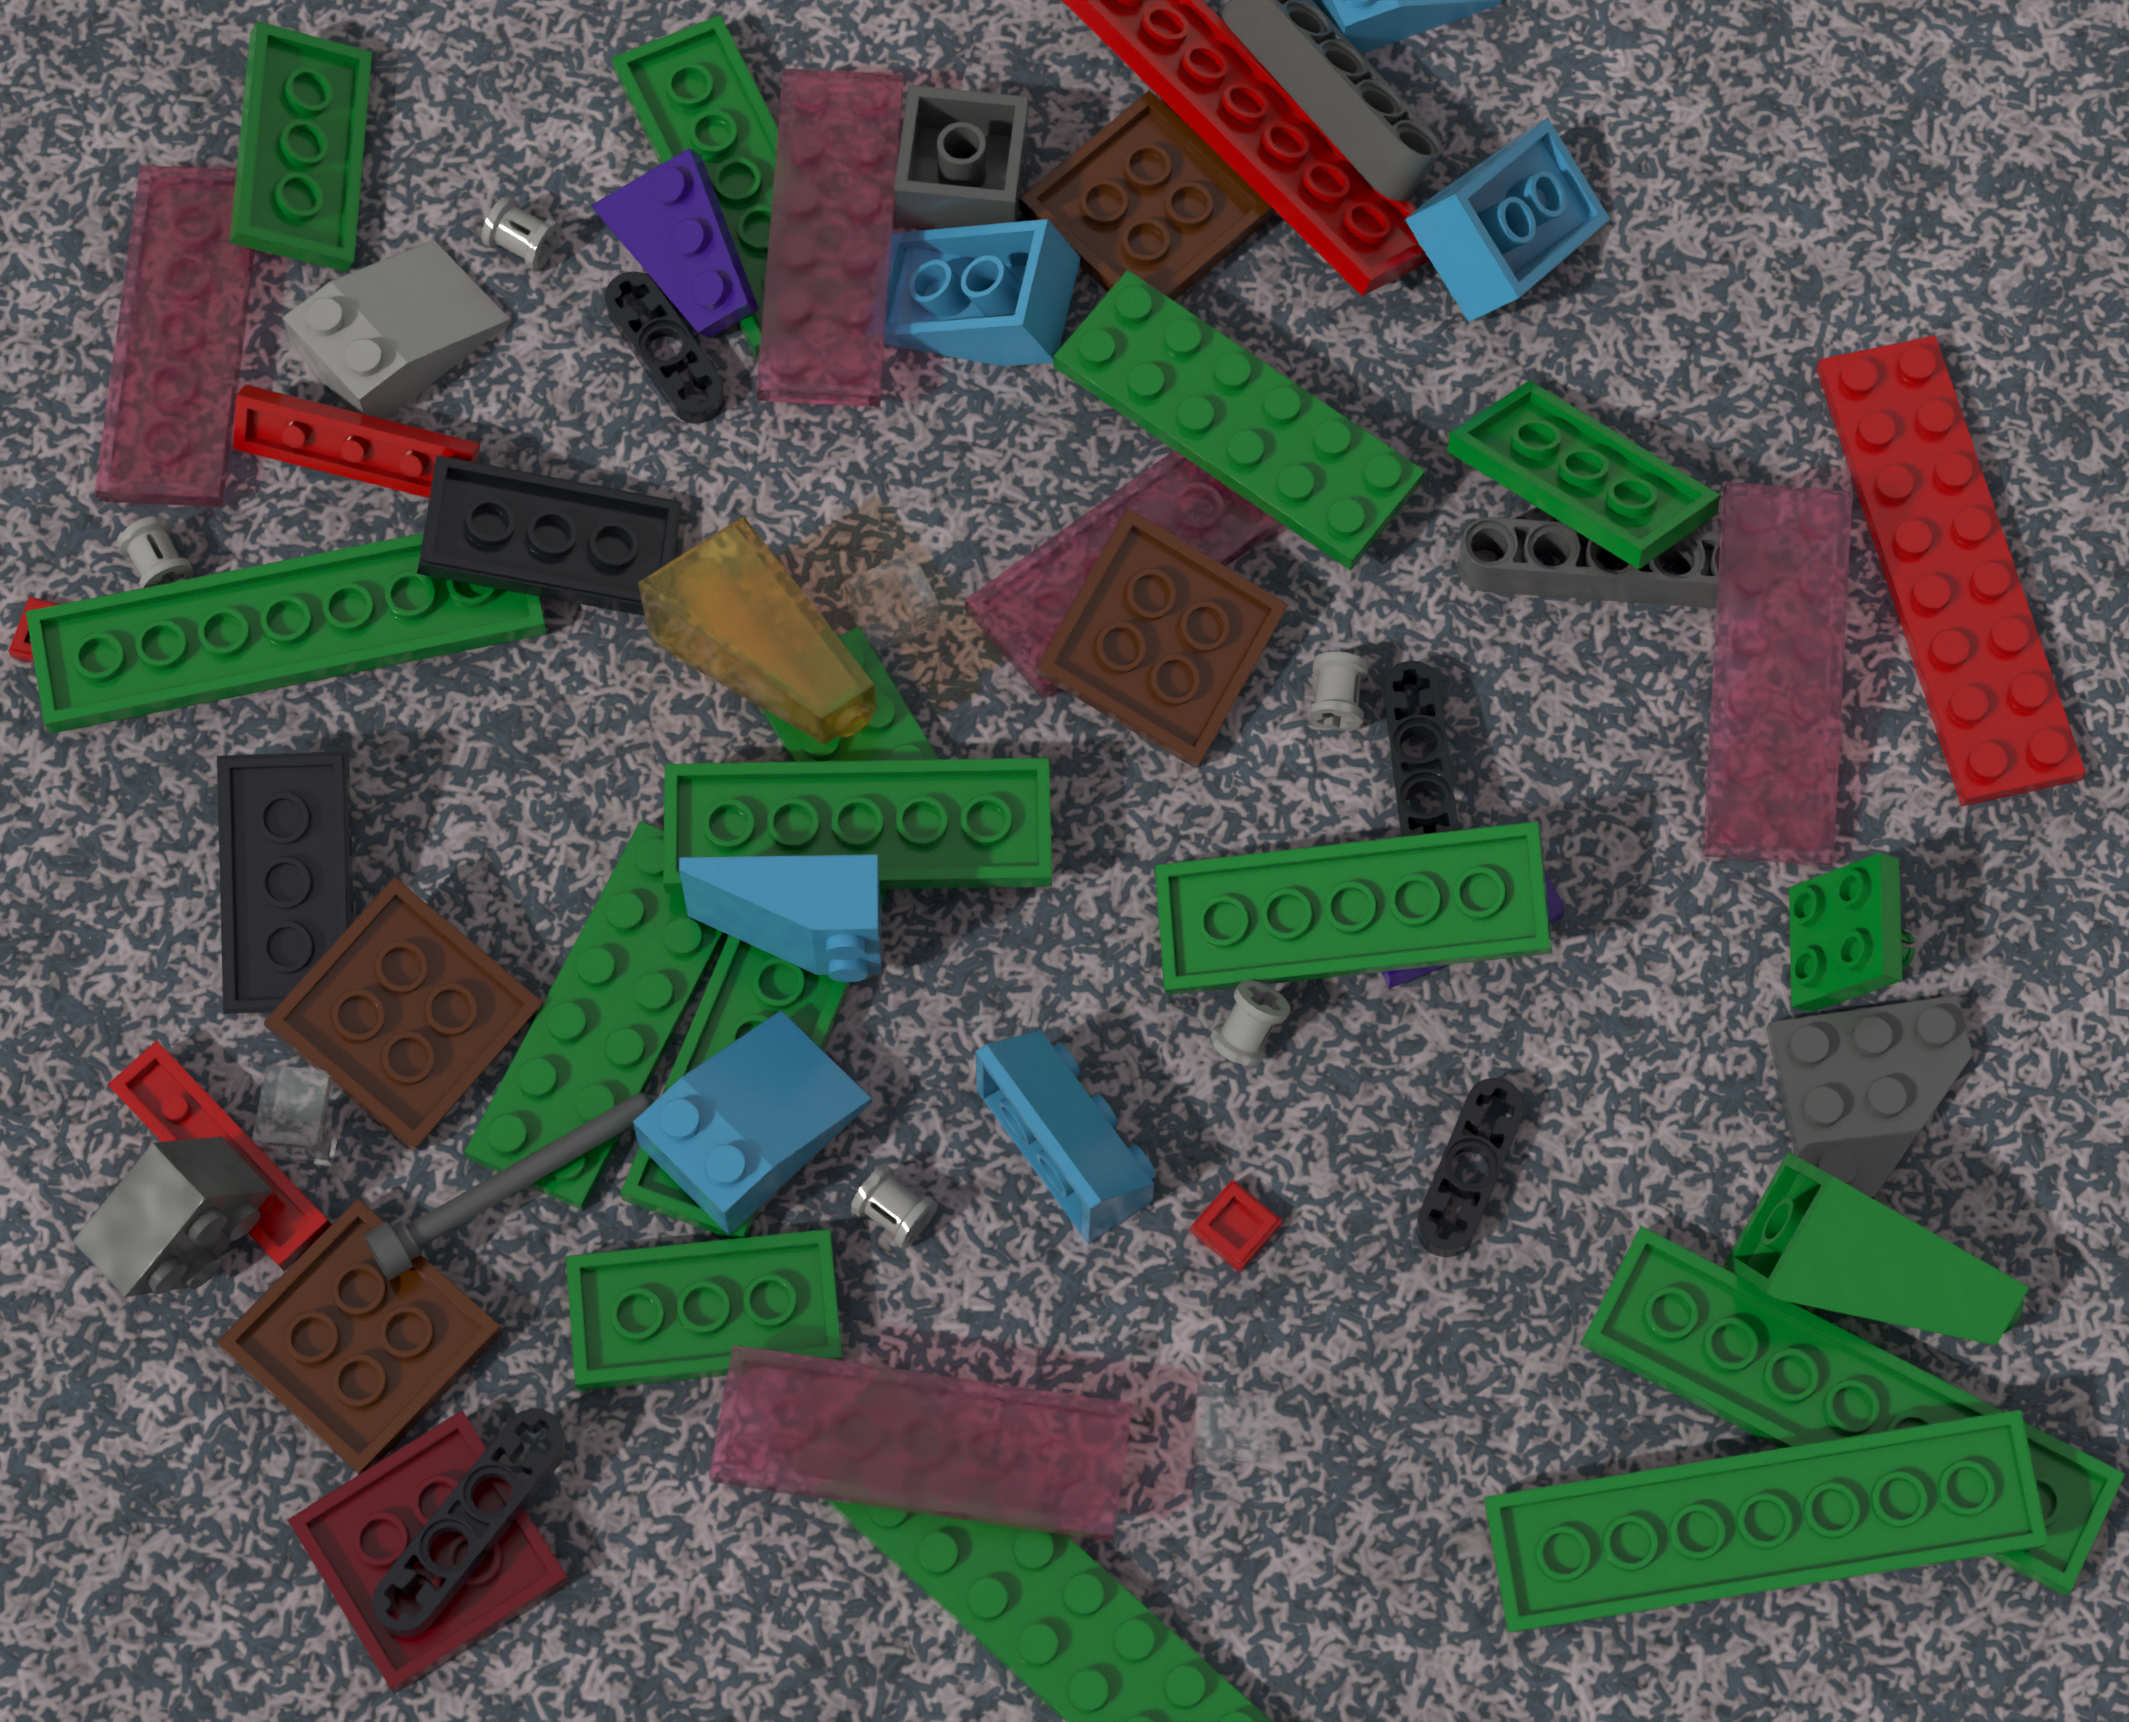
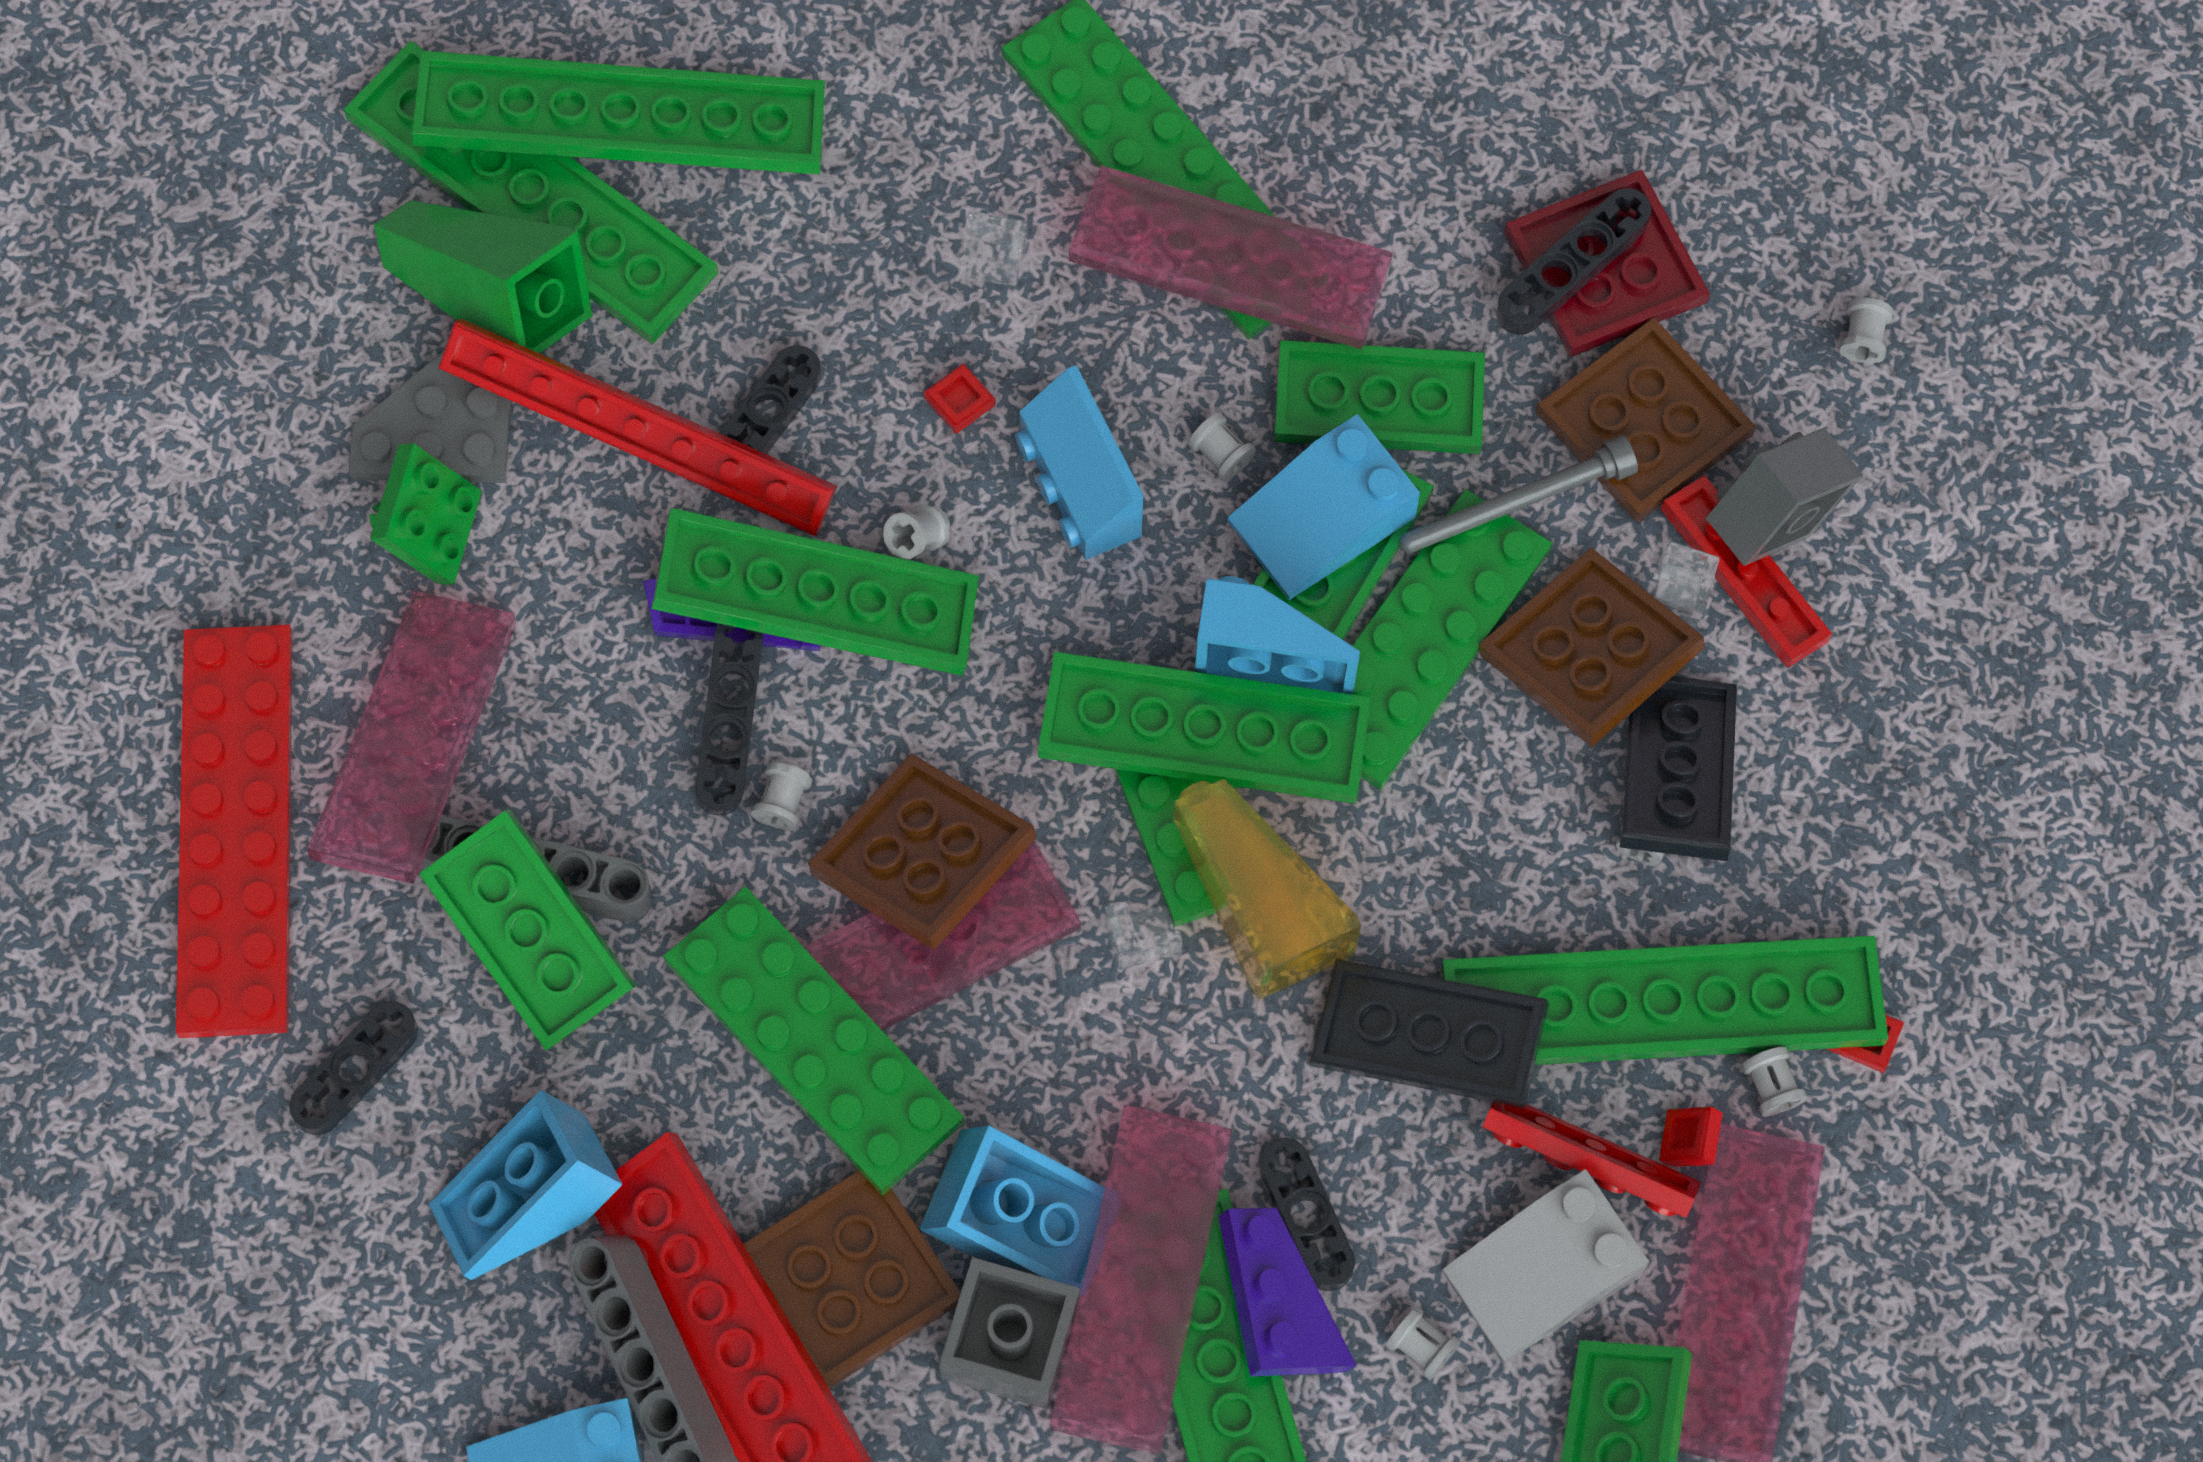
camera: 170 degrees left, 0 degrees up
(77, 1508) = (1866, 330): none -> light grey bush
(246, 483) = (1690, 1136): none -> red tile
(1626, 1093) = (637, 427): none -> red tile
(1732, 311) = (391, 1046): none -> black beam

